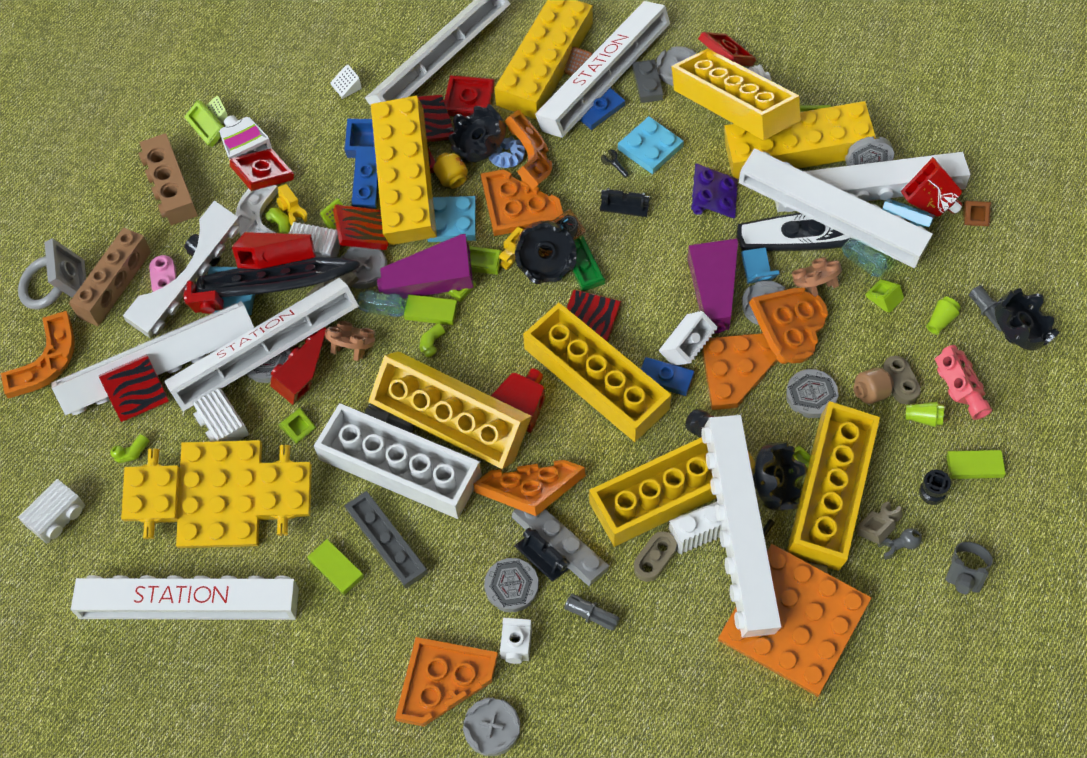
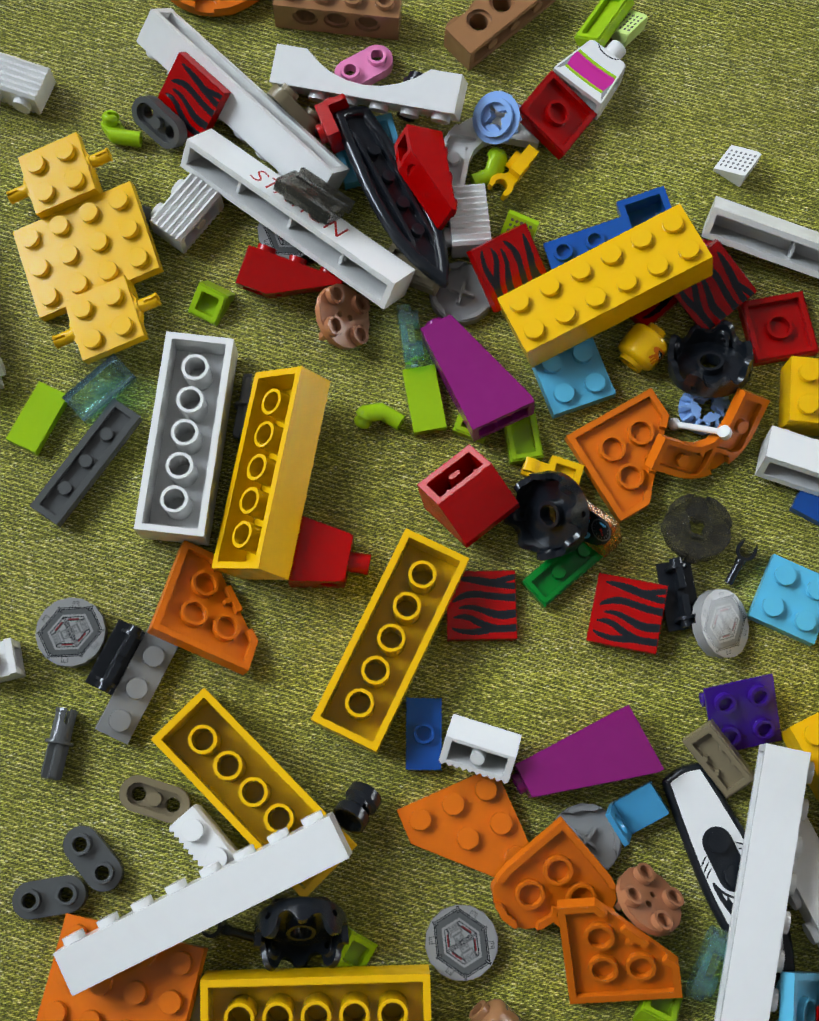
camera: 65 degrees right, 15 degrees up
(139, 420) = (160, 123): none -> dark grey plate
(168, 323) = (286, 99): none -> dark tan plate
(242, 206) = (485, 113): none -> light blue gear
(249, 324) = (313, 196): none -> clear smoke plate
(333, 514) = (99, 388): none -> clear light blue brick
(513, 296) = (467, 496): none -> red slope
(530, 138) = (723, 431): none -> white hinge
(582, 189) = (692, 546): none -> clear smoke plate
(627, 234) = (627, 614): none -> red tile
(655, 182) = (720, 623): none -> light grey tile
(685, 612) = (94, 856): none -> dark grey plate
(703, 648) = (49, 897): none -> dark grey plate
(739, 211) = (719, 758): none -> dark tan plate
(847, 302) = (612, 957): none -> orange plate

